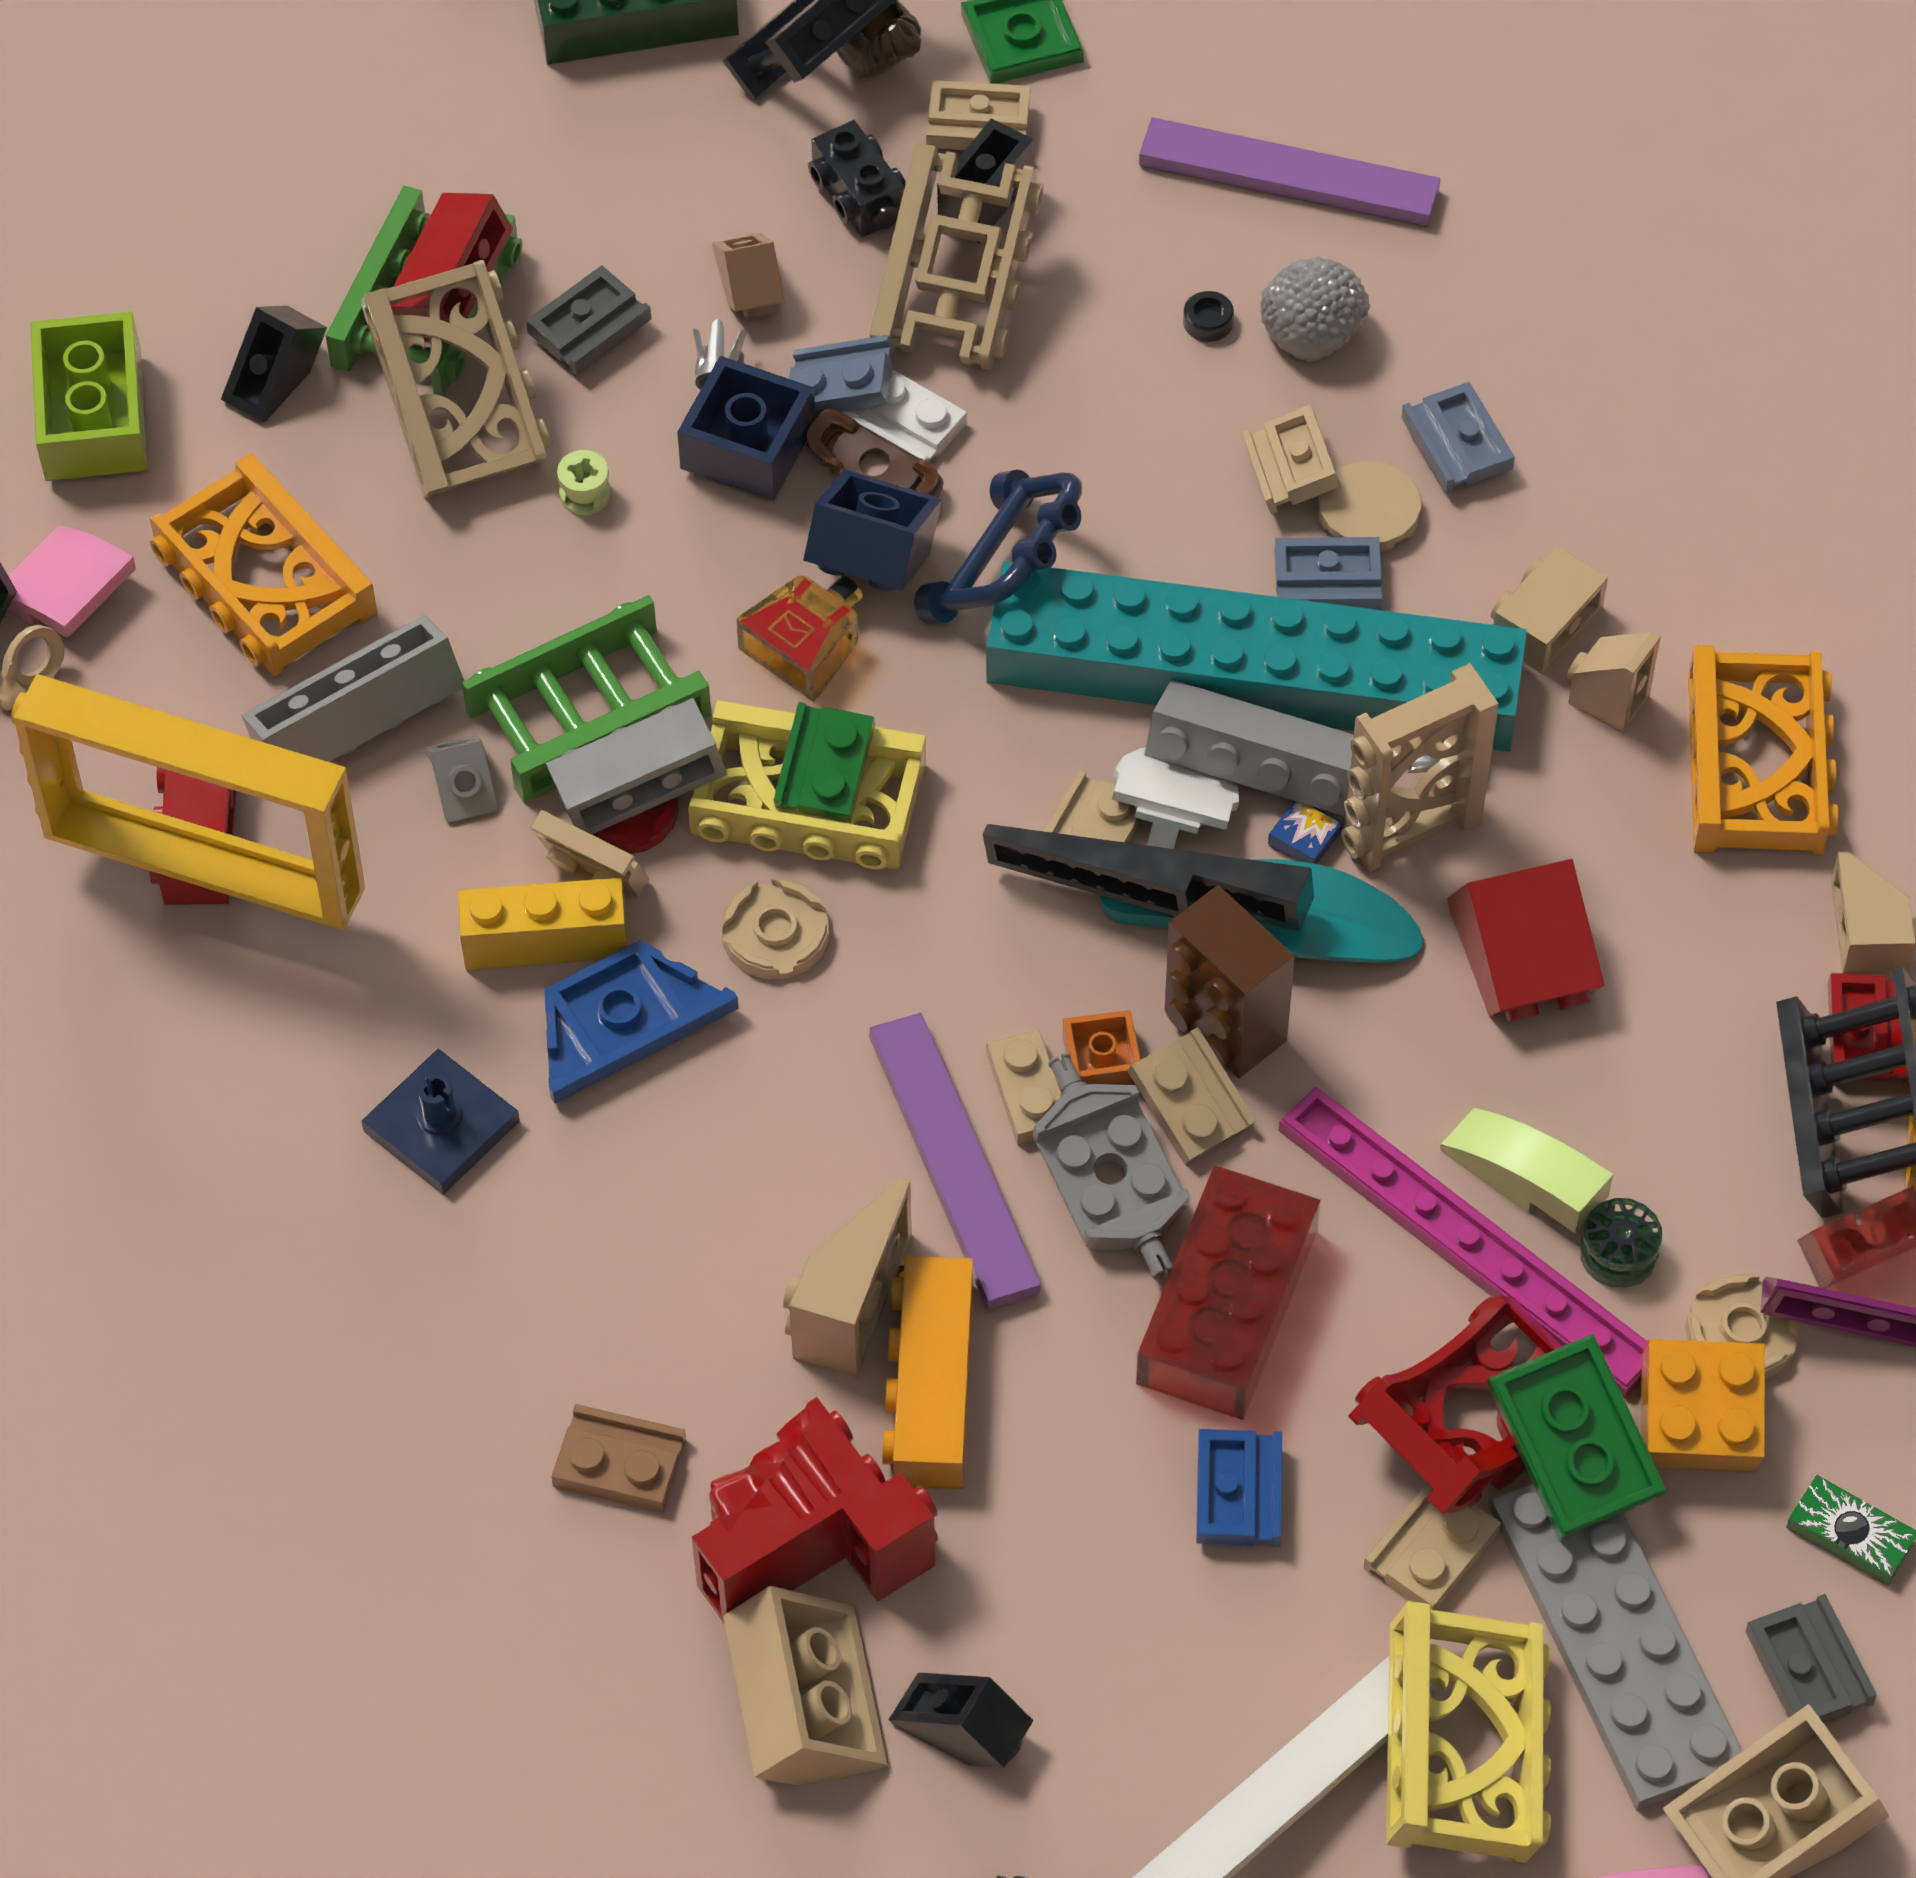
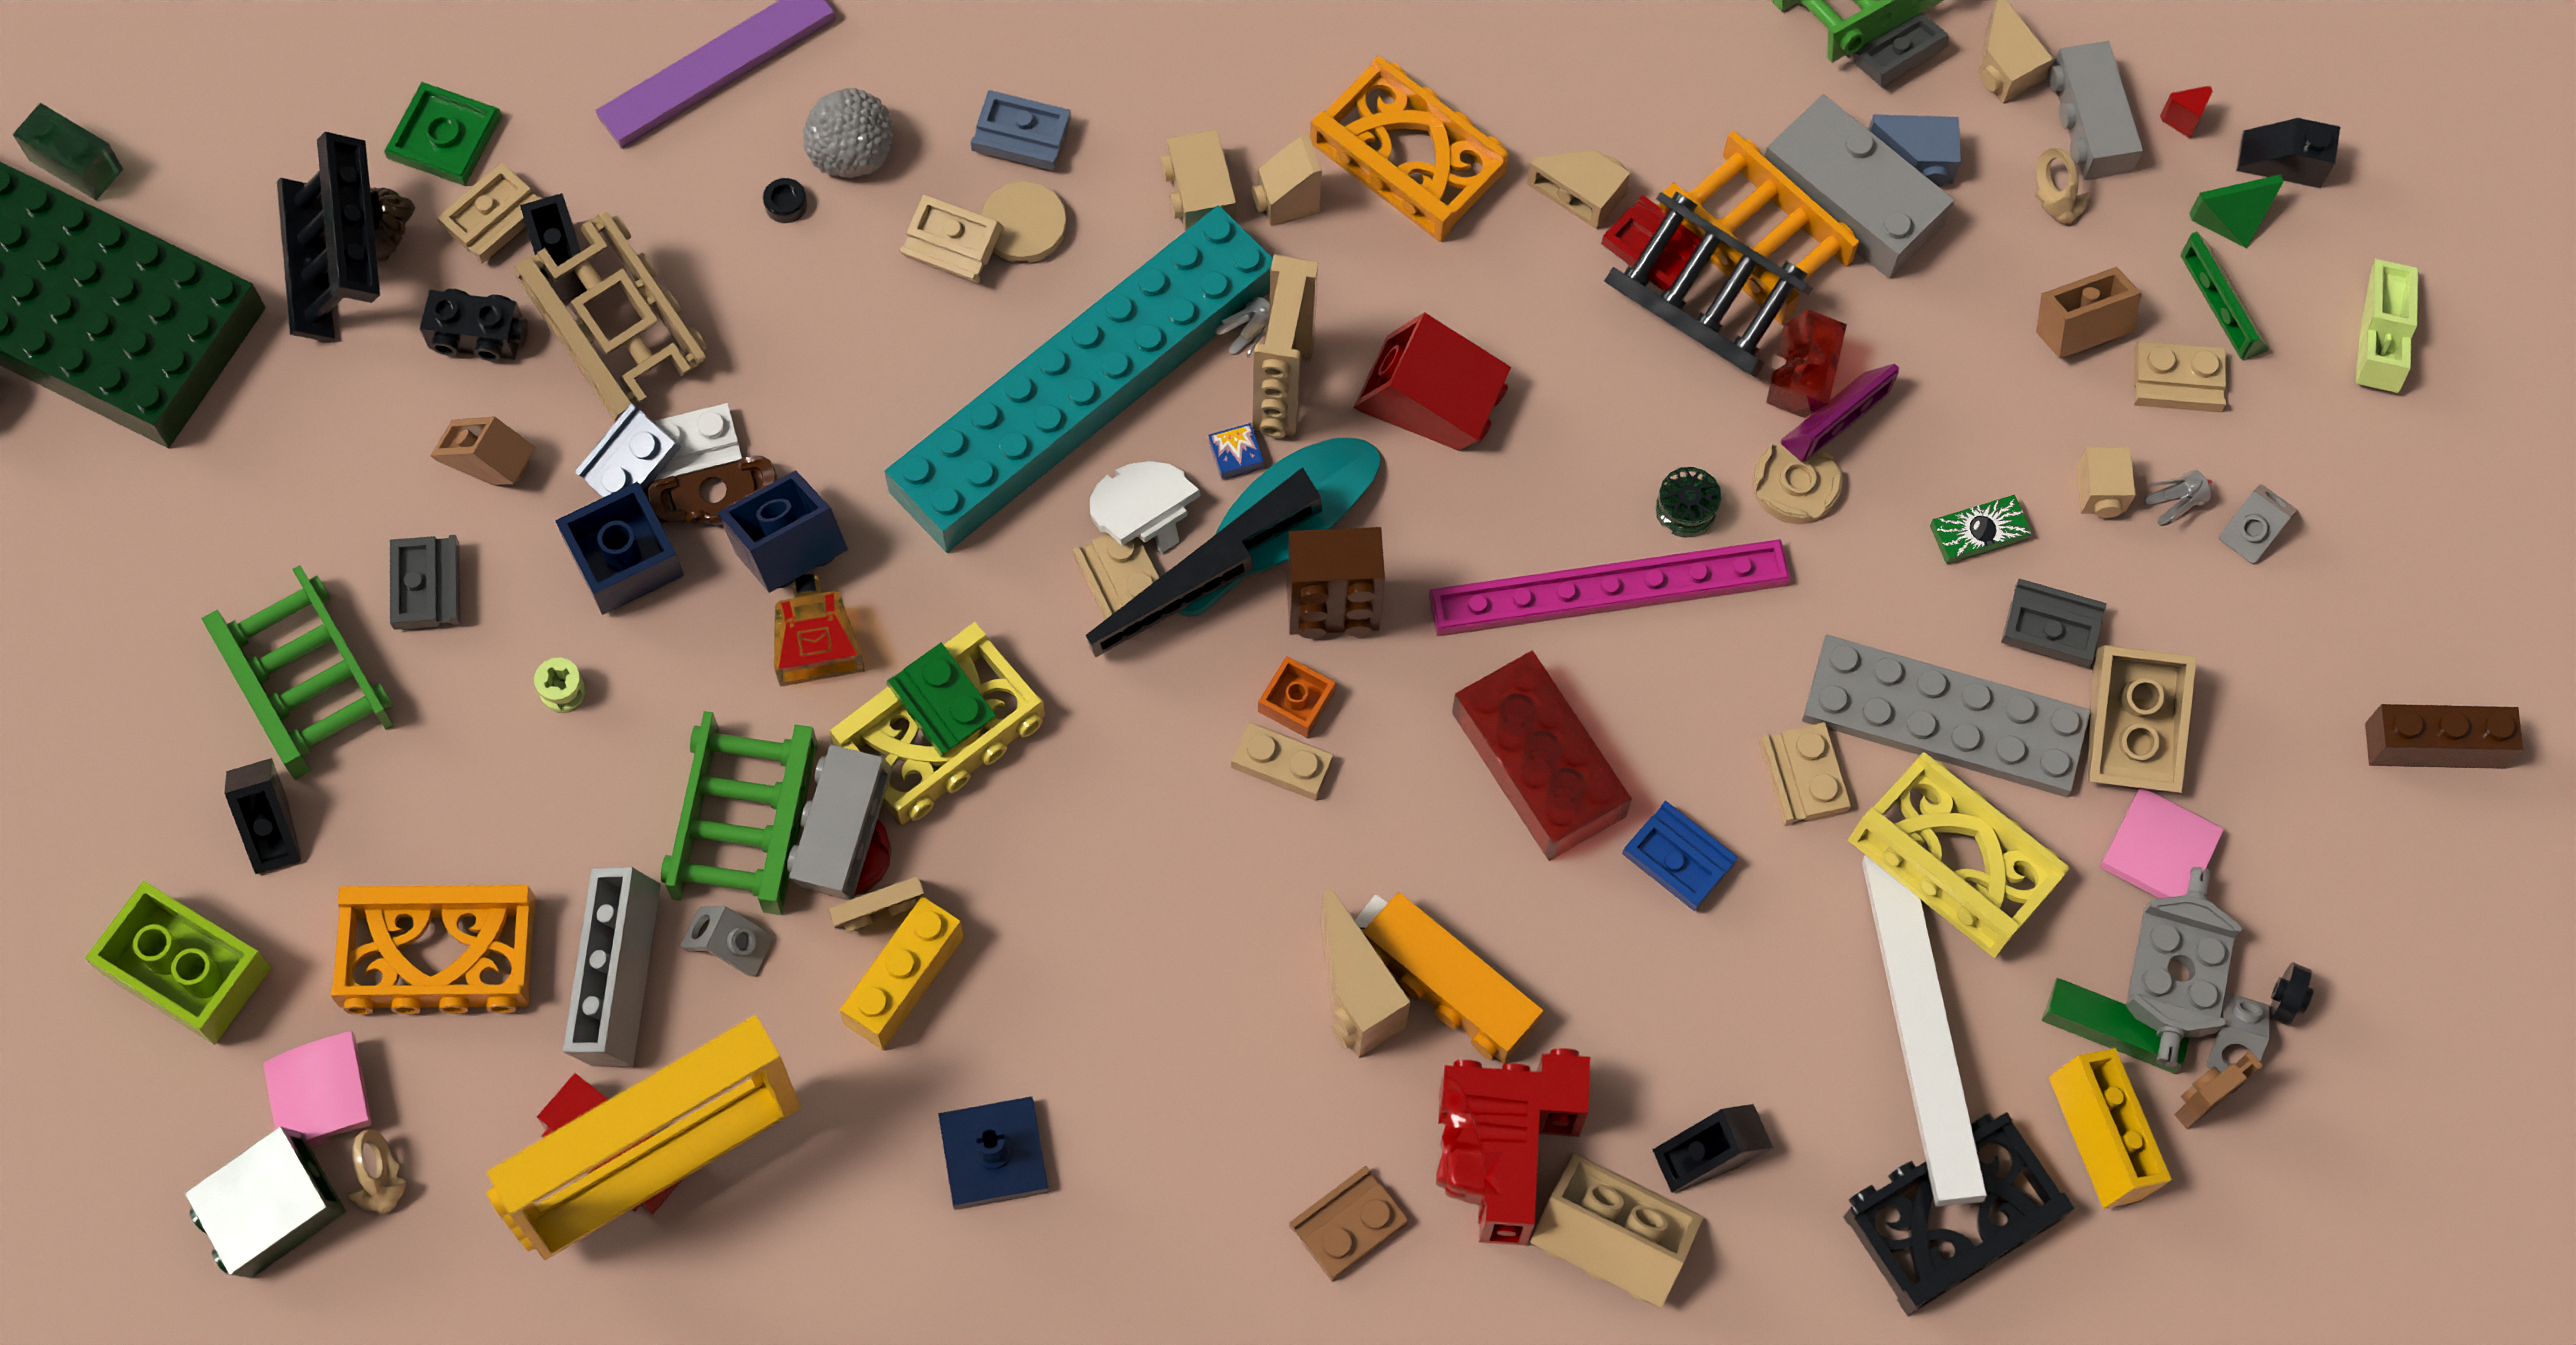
camera: 55 degrees left, 10 degrees up
(433, 446) = (350, 723): tan fence -> none
(456, 234) = (309, 640): red brick -> none
(622, 1014) = (1013, 974): blue wing -> none
(709, 355) = (545, 533): flat silver piece -> none
(775, 929) = (1027, 827): tan tile -> none
(954, 1161) = (1297, 846): medium lavender tile -> none
(1011, 495) = (824, 422): dark blue bar -> none
(1100, 1126) = (1428, 755): light grey plate -> none
(1191, 1095) = (1378, 668): tan plate -> none
(1251, 746) = (1157, 428): light grey brick -> none
(1330, 570) = (1056, 286): sand blue plate -> none
(1418, 1427) = (1728, 719): red fence -> none
(1529, 1166) = (1593, 511): yellowish green slope -> none
(1576, 1436) = (1818, 632): green tile -> none
(1703, 1404) = (1845, 545): light orange brick -> none

